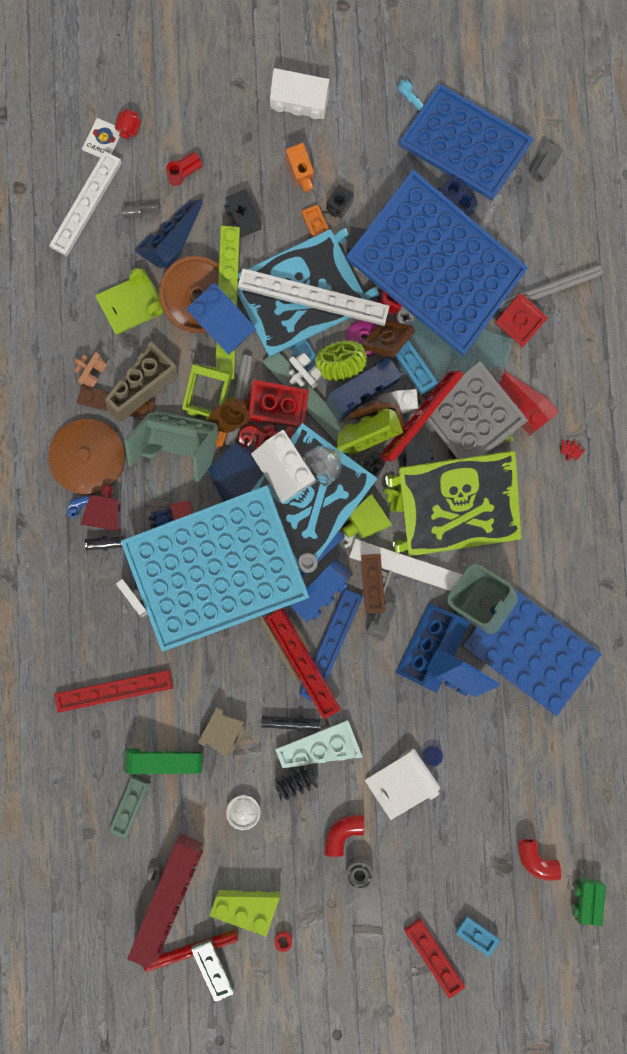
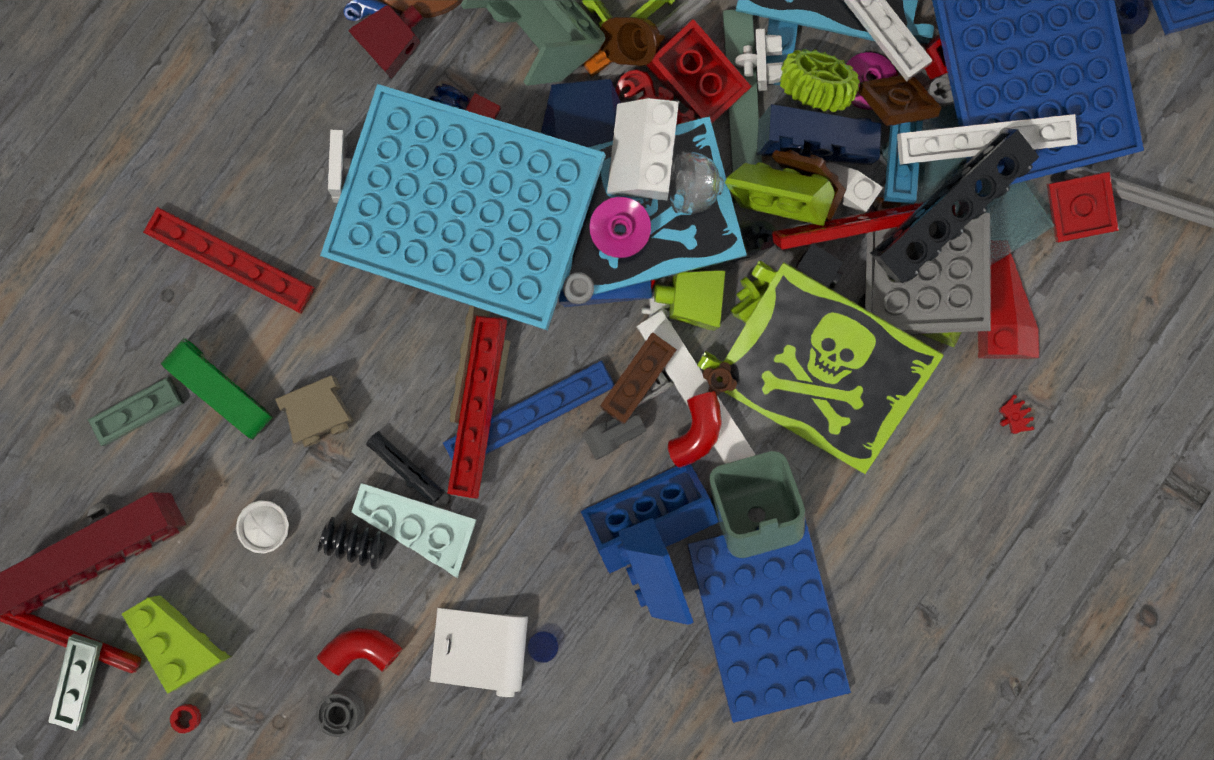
camera: 40 degrees right, 0 degrees up
(104, 543) = (357, 76): black pin -> none
(304, 505) = (620, 212): none -> dark pink dish
(322, 590) = (571, 338): blue wedge -> none
(412, 555) = (727, 383): none -> reddish brown plate
(426, 585) = (703, 431): none -> red cylinder
(448, 325) = (969, 140): none -> white plate
(456, 360) = (1018, 161): none -> black brick

